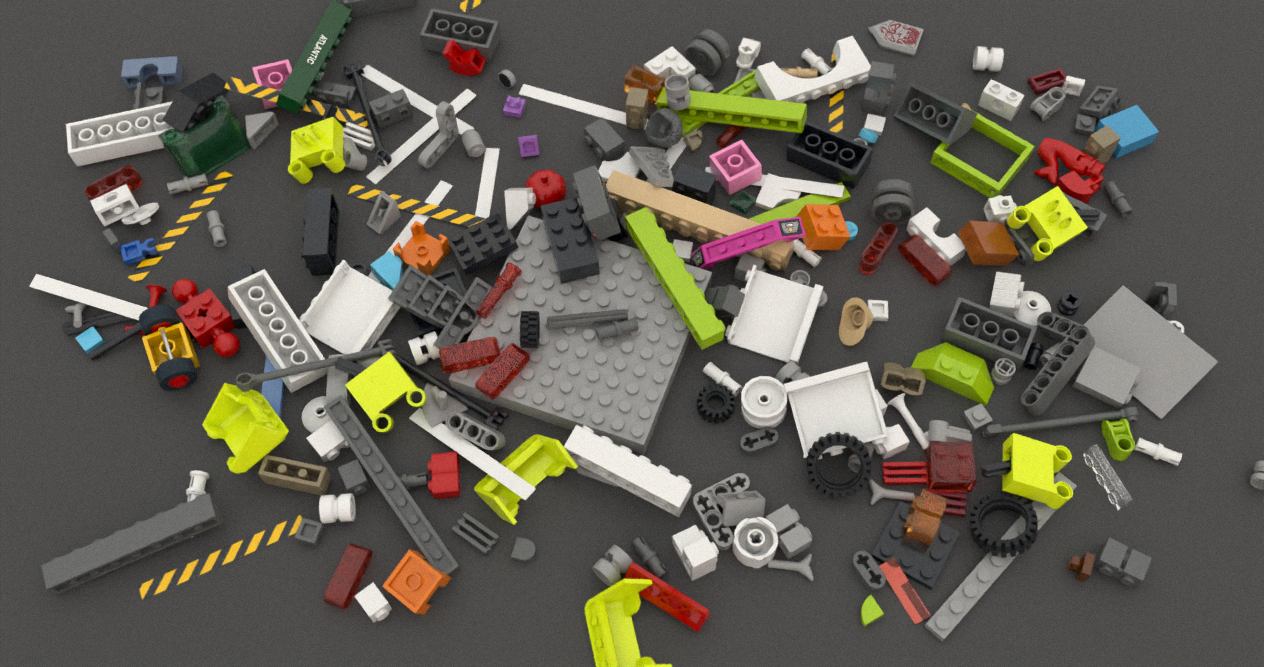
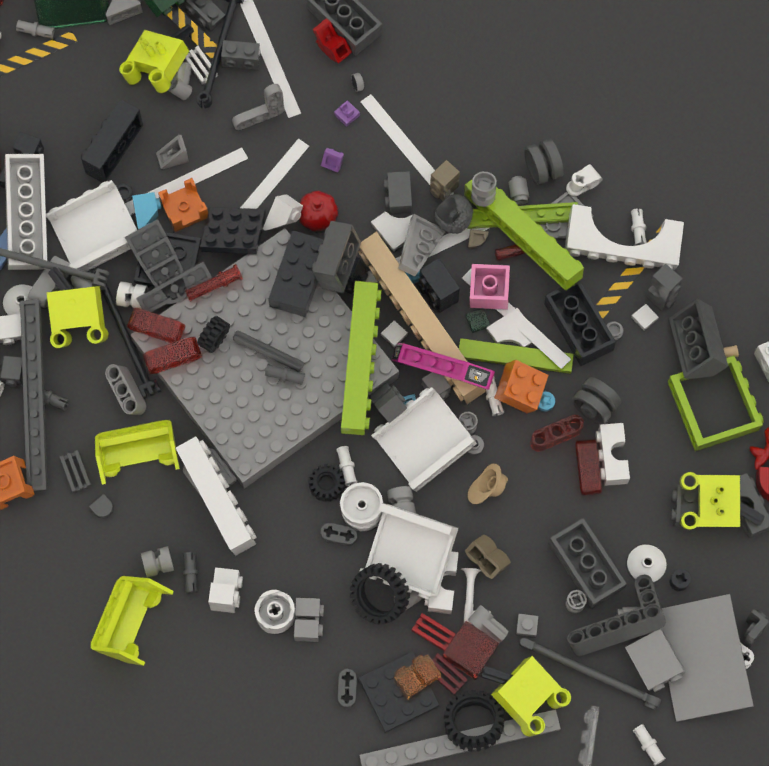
camera: 30 degrees right, 10 degrees up
(216, 228) = (34, 85): light grey pin -> none
(417, 139) = (252, 94): white sticker -> none
(418, 206) = (206, 160): sticker -> none
(439, 405) = (114, 350): light grey shield -> none
(445, 475) = (81, 411): red brick -> none
(473, 143) = (288, 129): light grey brick -> none
(475, 456) = (111, 407): white sticker -> none
(645, 79) = (468, 158): clear orange piece -> none
(670, 63) = (502, 153): white brick -> none
(670, 599) = (181, 611): red fence -> none
(709, 495) = (269, 560): light grey beam -> none
(740, 506) = (285, 578): light grey panel -> none
(801, 73) = (614, 228): tan pin -> none
(801, 566) = (300, 653): light grey piece -> none
(868, 135) = (629, 325): medium azure tile -> none
(870, 611) = (325, 718): lime tile -> none
(879, 309) = (516, 486): white tile -> none
(879, 492) = (403, 635): light grey piece -> none
(897, 36) = (734, 243): light grey tile -> none
(904, 591) = (363, 720): clear red sticker -> none
(956, 371) = (539, 577): lime wedge -> none
(988, 243) = (649, 487): dark orange brick -> none
(999, 208) = (687, 462): white brick -> none
(1005, 293) = (631, 539): white brick -> none
(1032, 359) = (613, 604): black pin -> none
(1117, 435) = (626, 710): lime piece -> none

